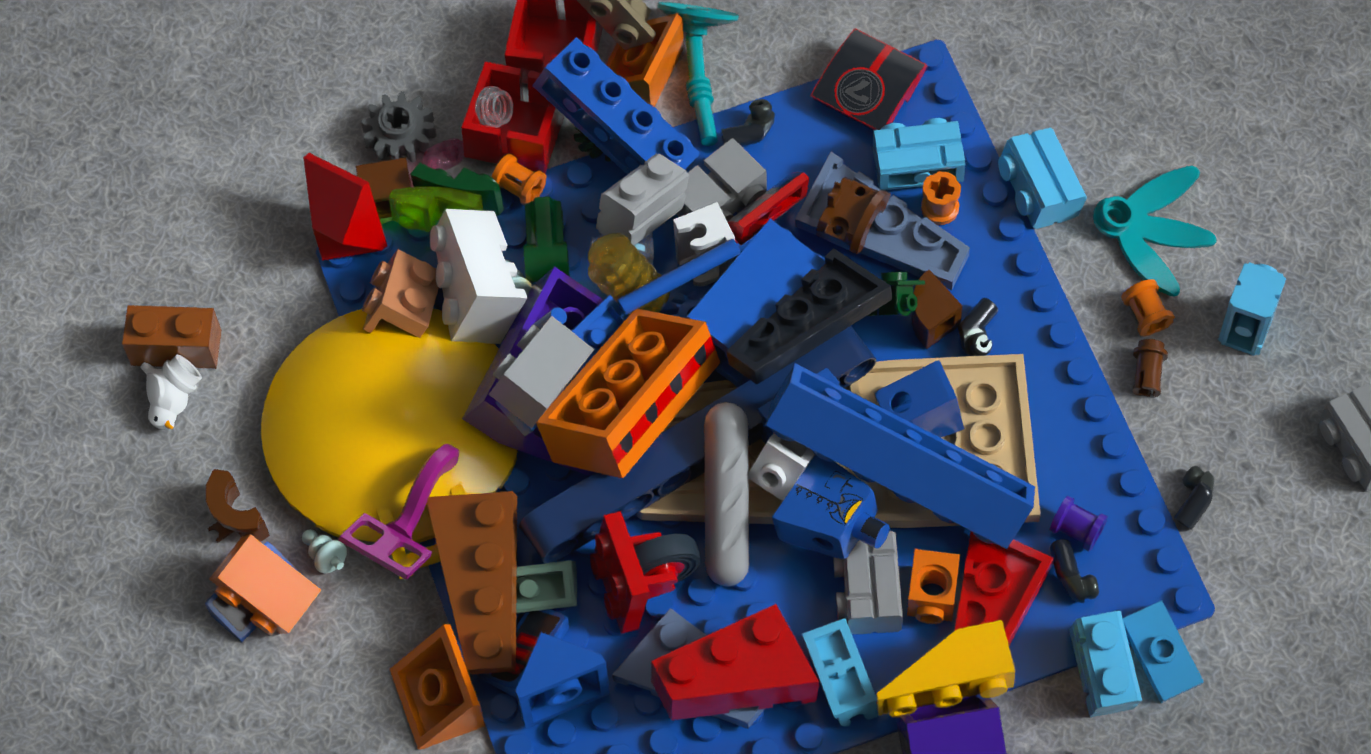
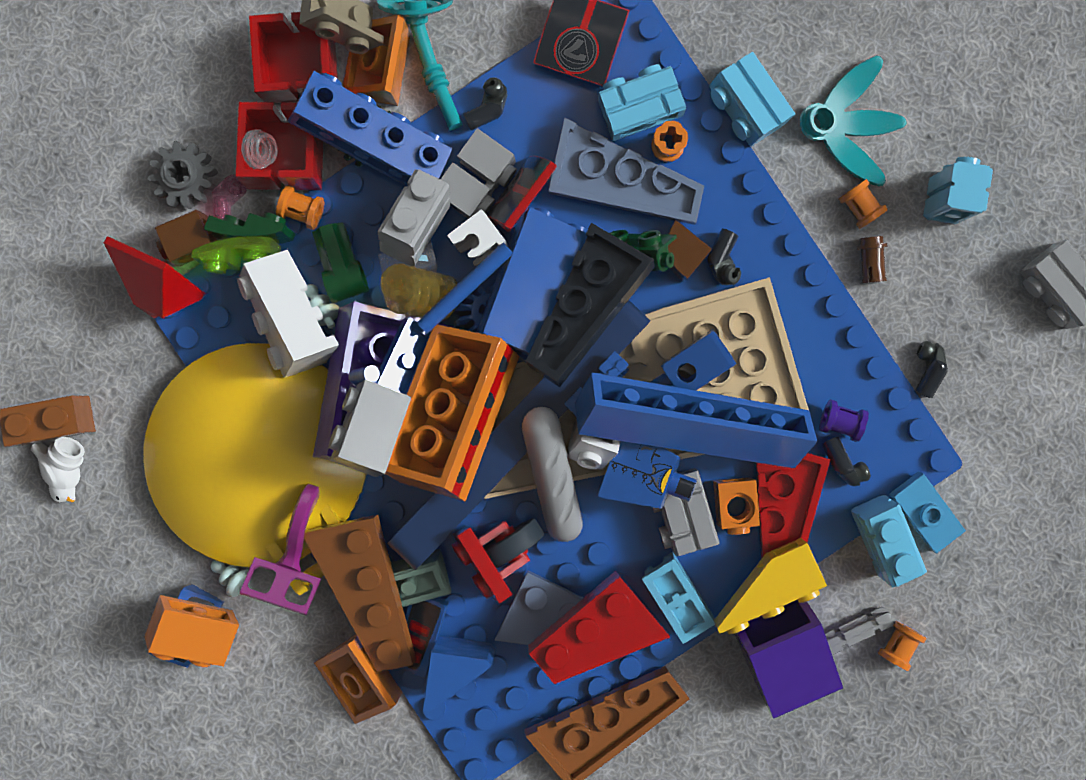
camera: 15 degrees left, 25 degrees up
(220, 496) = (138, 570): reddish brown piece -> none
(402, 294) = (230, 346): nougat bracket -> none
(850, 214) = (598, 179): reddish brown piece -> none

